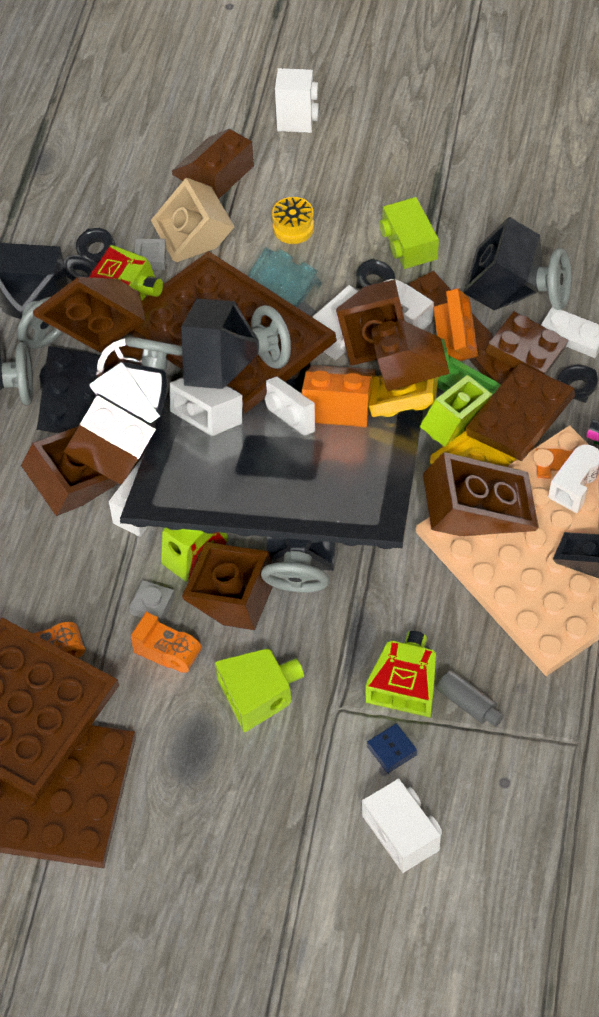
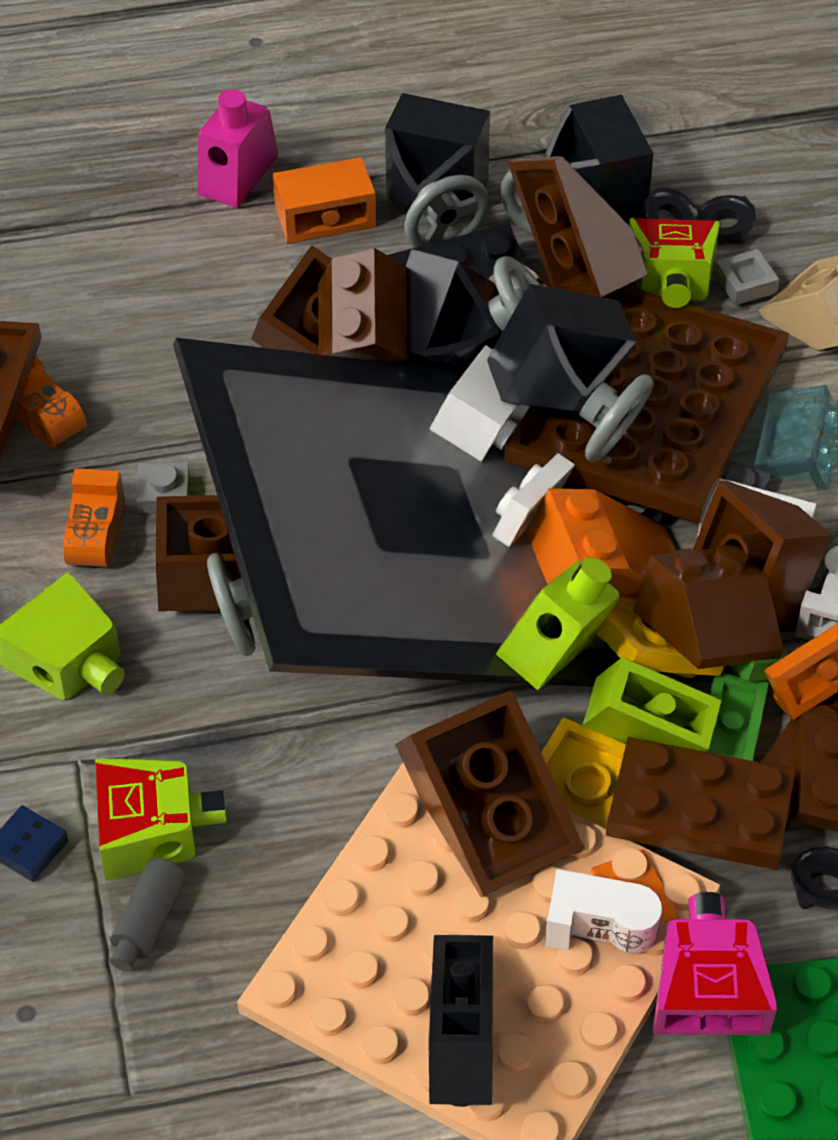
camera: 65 degrees right, 5 degrees down
(398, 417) = (577, 603): none -> lime torso

